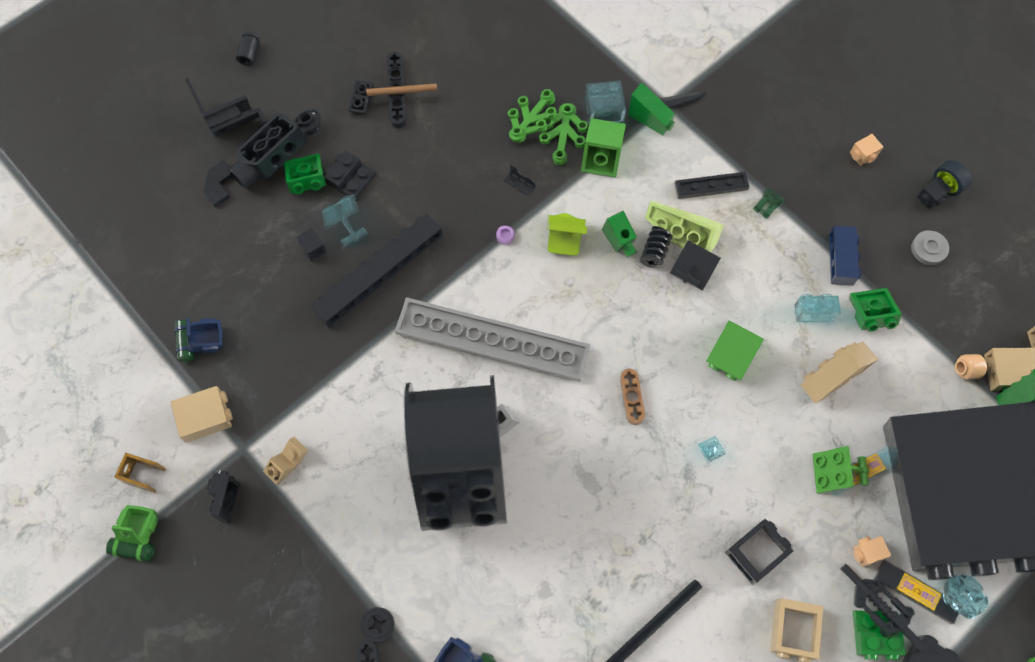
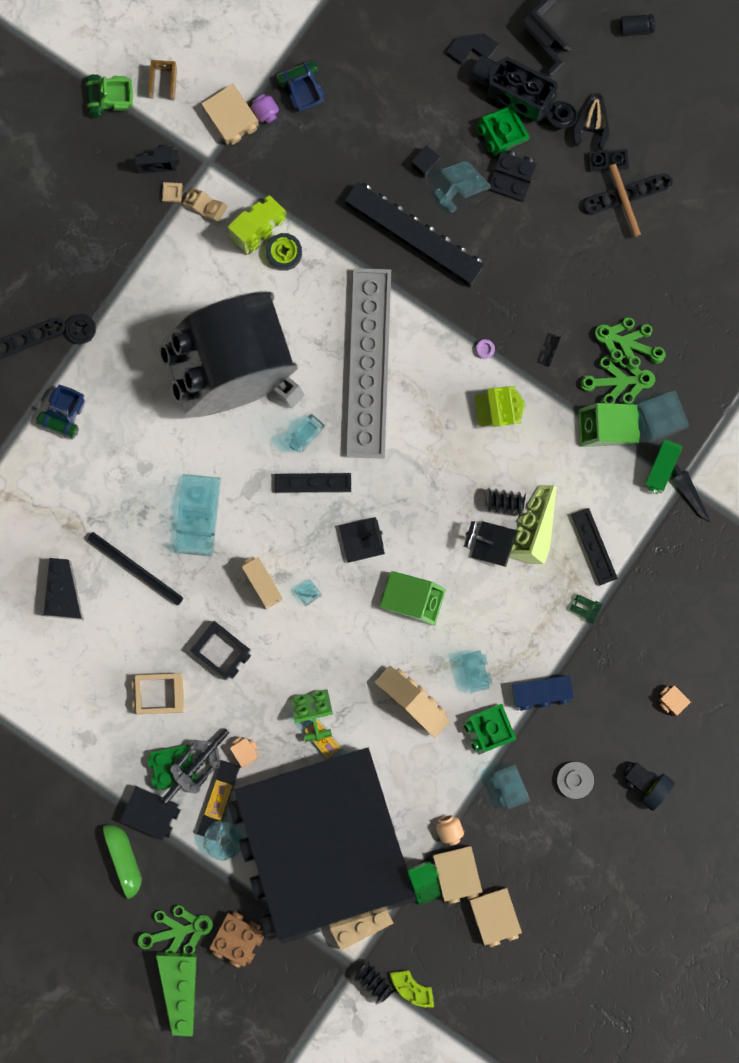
camera: 75 degrees right, 15 degrees up
(207, 377) = (264, 108): none -> medium lavender head
(261, 492) = (172, 192): none -> tan tile
(322, 99) = (593, 119): none -> black animal
(324, 411) = (252, 227): none -> lime brick
(365, 400) = (280, 242): none -> wheel
(549, 413) = (305, 434): none -> clear light blue brick
(599, 420) = (313, 483): none -> black tile
(609, 543) = (197, 515): none -> clear light blue slope
(620, 233) = (514, 457): green torso -> none
(629, 410) = (345, 501): medium nougat beam -> none
(668, 383) = (362, 539): none -> black plate
(696, 489) = (262, 582): none -> tan brick
(934, 301) = (510, 786): none -> clear light blue brick

